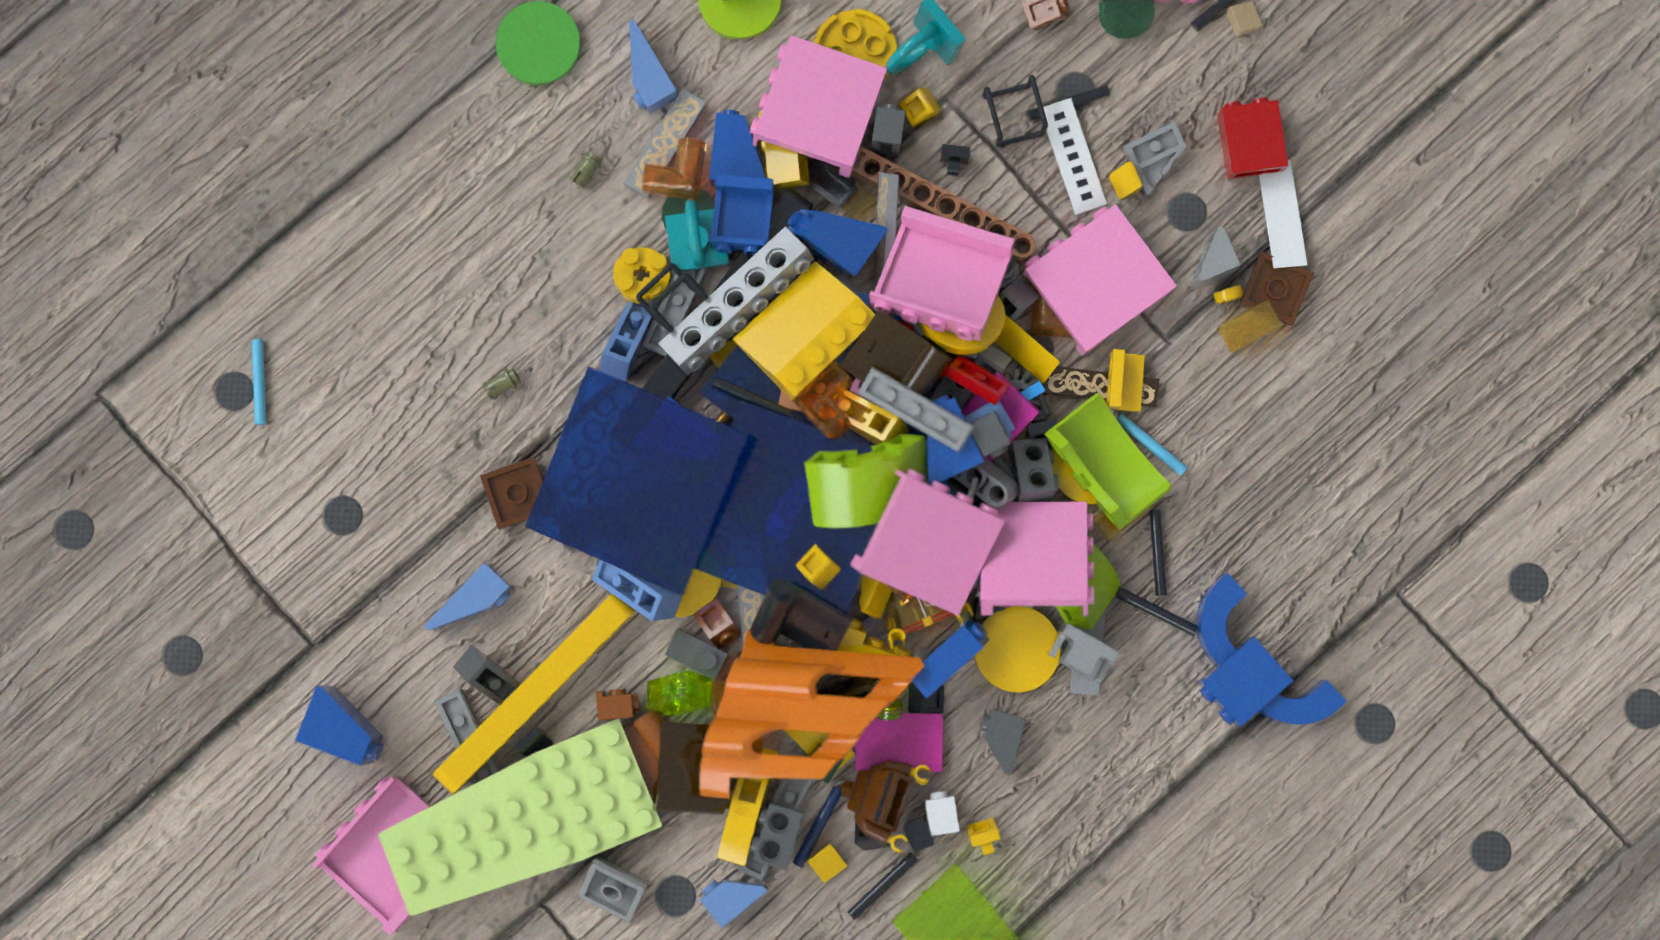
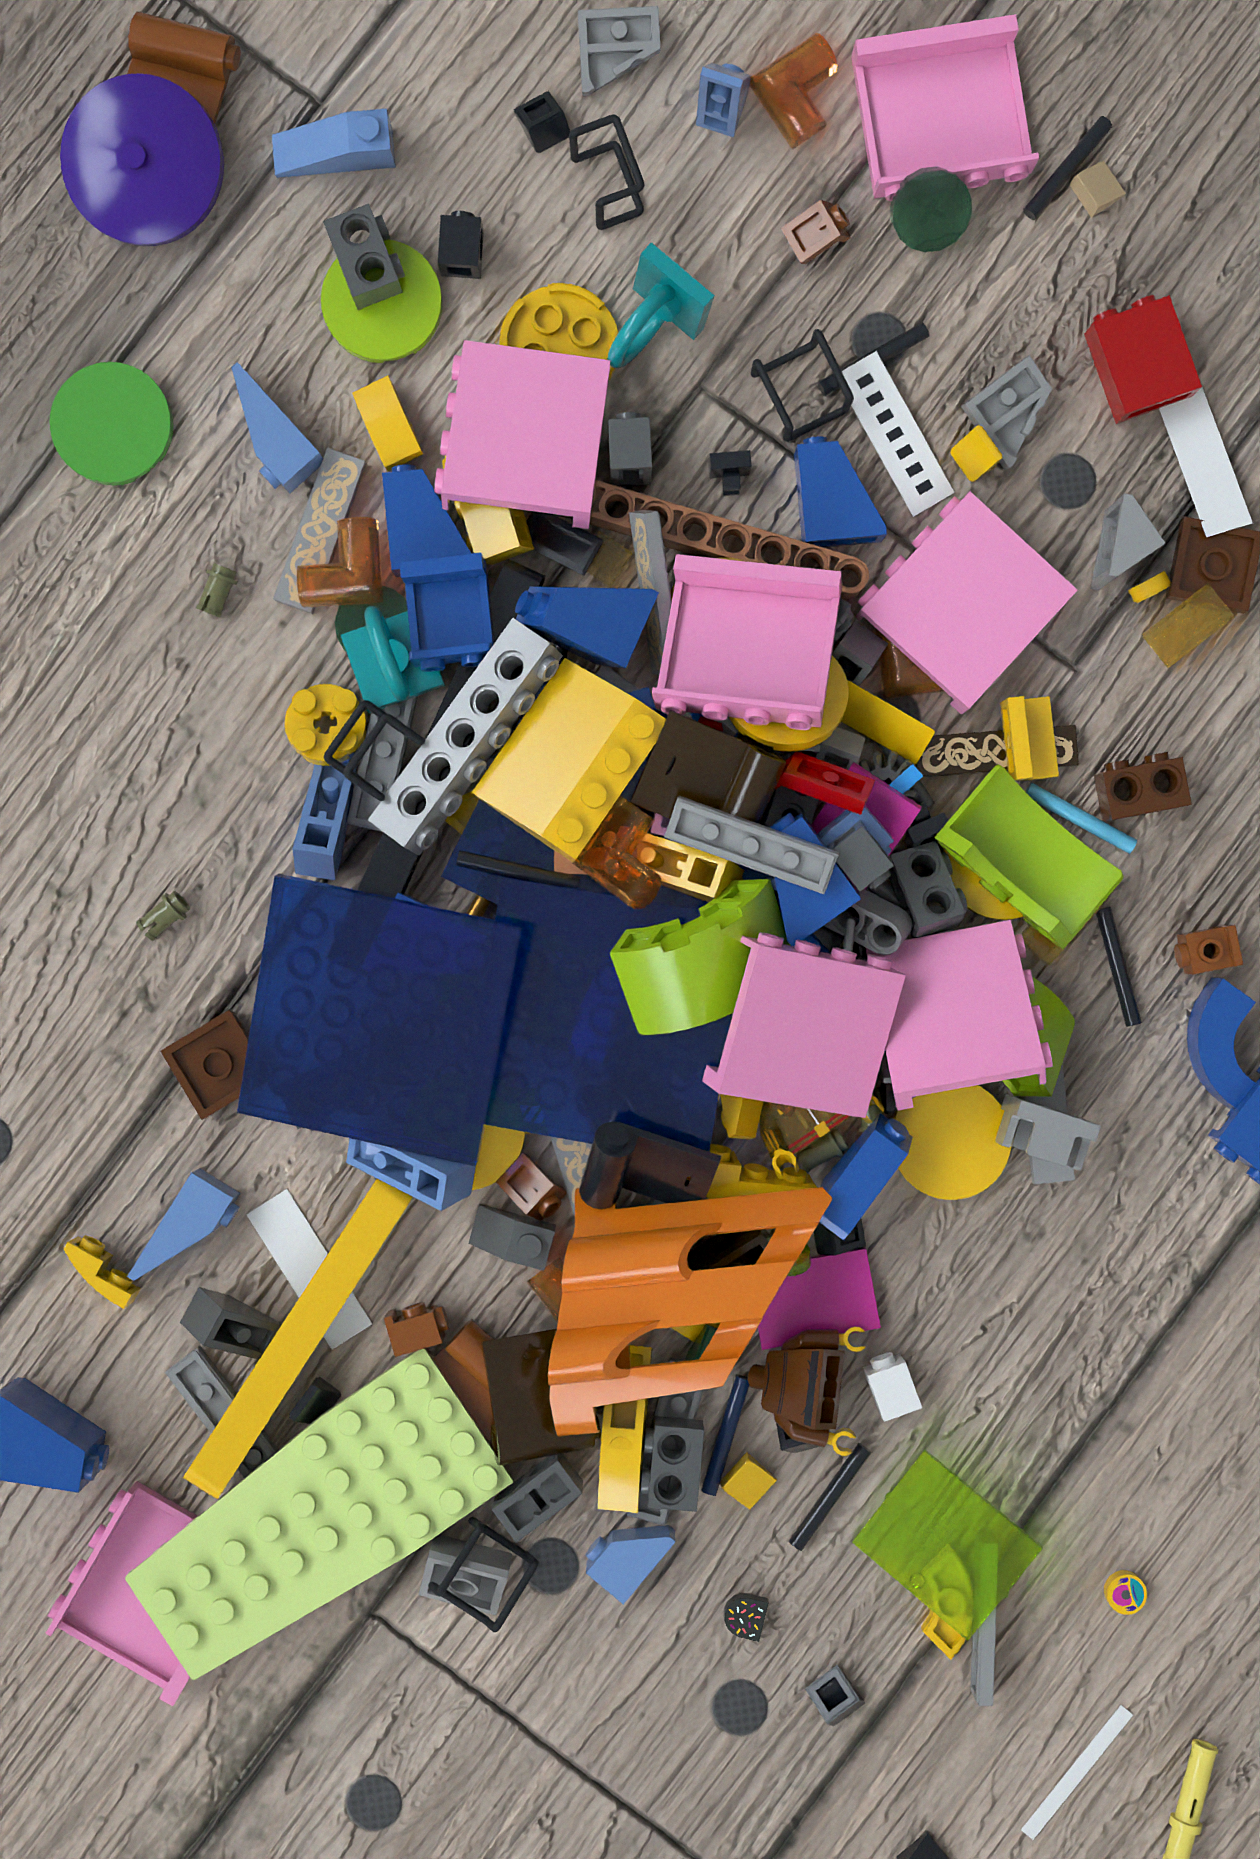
camera: 10 degrees left, 5 degrees up
(401, 613) = (91, 1262): none -> yellow slope
(544, 638) = (300, 1256): none -> white sticker
(629, 854) = (441, 1590): none -> black piece
(677, 839) = (537, 1496): none -> dark grey brick
(679, 693) = (499, 1299): clear neon green brick -> none
(726, 80) = (387, 423): none -> yellow slope
(818, 567) = (656, 1091): yellow slope -> none
(918, 834) = (865, 1422): black slope -> none
(919, 106) = (666, 405): yellow slope -> none
(925, 638) = (823, 1150): none -> olive pin
(983, 834) = (954, 1401): yellow tile -> none
(1003, 737) = (956, 1262): dark grey slope -> none
(1021, 191) = (832, 498): none -> blue slope
(1157, 611) = (1132, 1048): black bar -> none
(1197, 438) = (1143, 795): none -> reddish brown brick
(1211, 559) = (1224, 945): none -> dark orange brick

